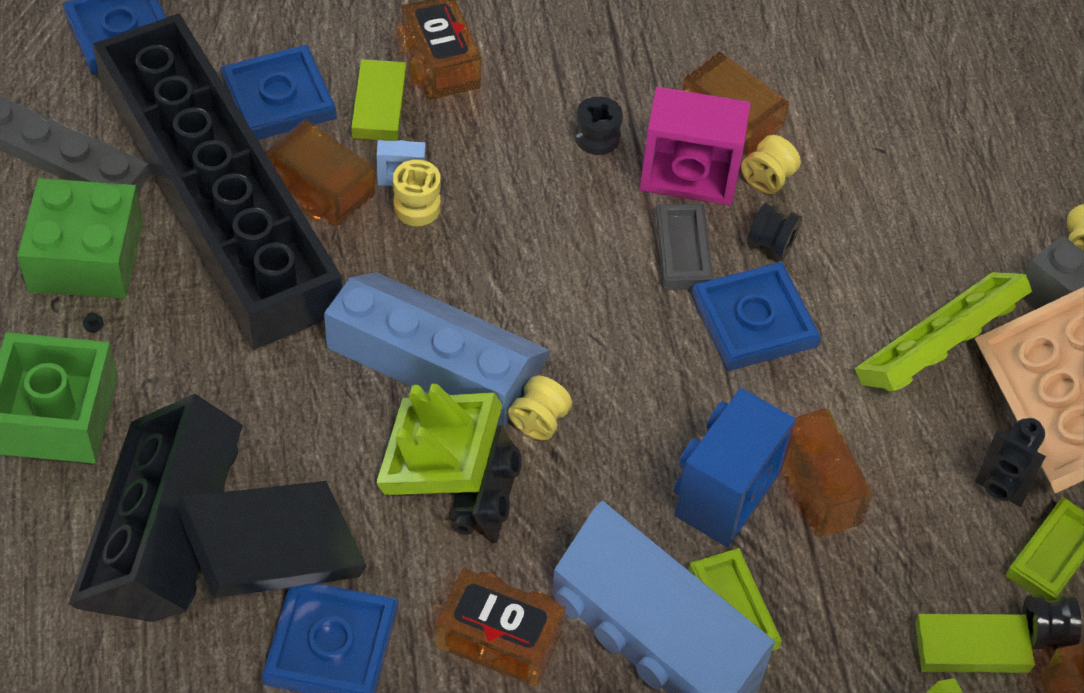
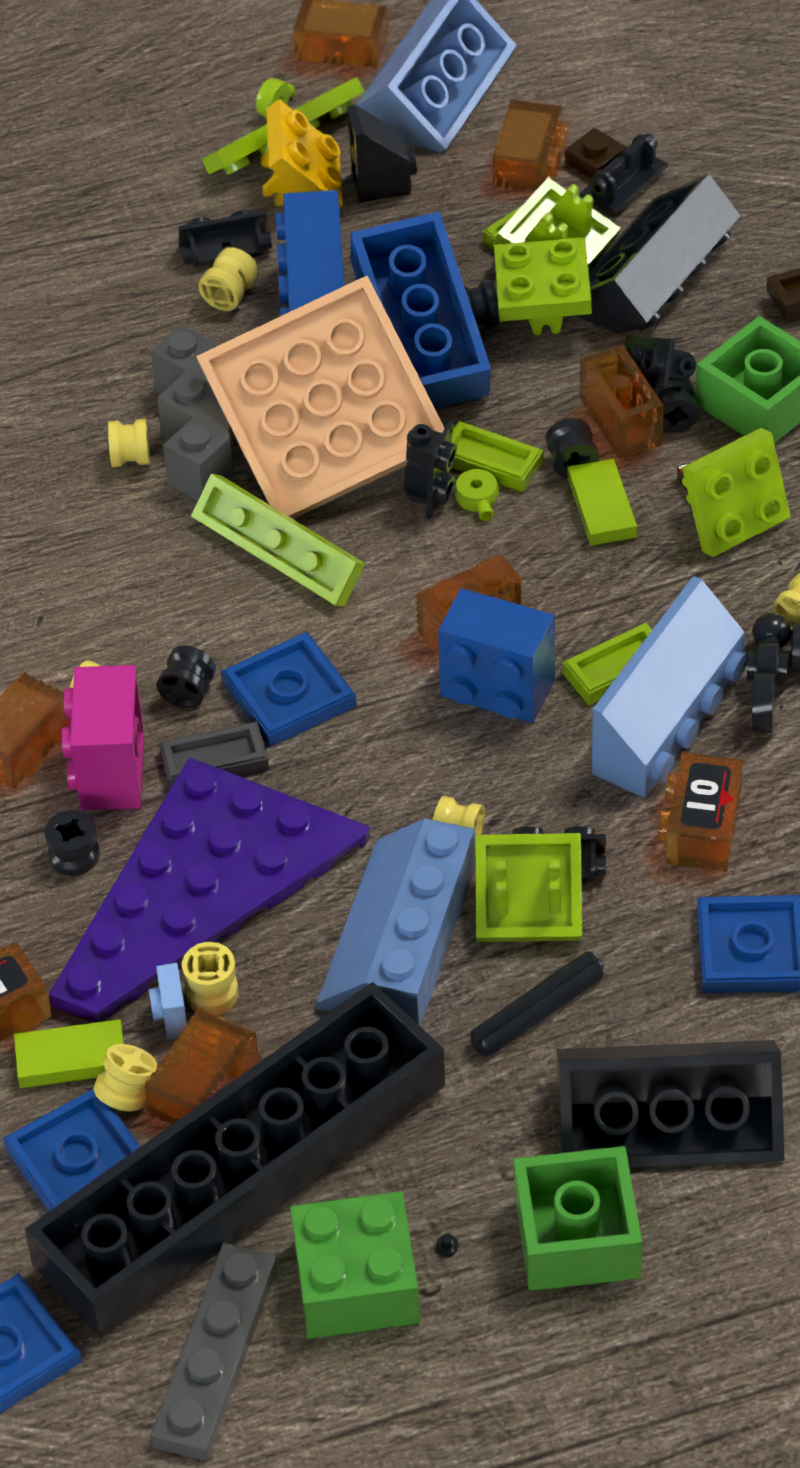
camera: 95 degrees left, 5 degrees down
(270, 538) = (679, 989): black tile -> none
(317, 437) = (536, 1004): none -> black axle
(336, 111) = (125, 1077): none -> light yellow wheel
(549, 219) = (196, 874): none -> dark purple wing
(1002, 526) = (477, 492): none -> lime piece

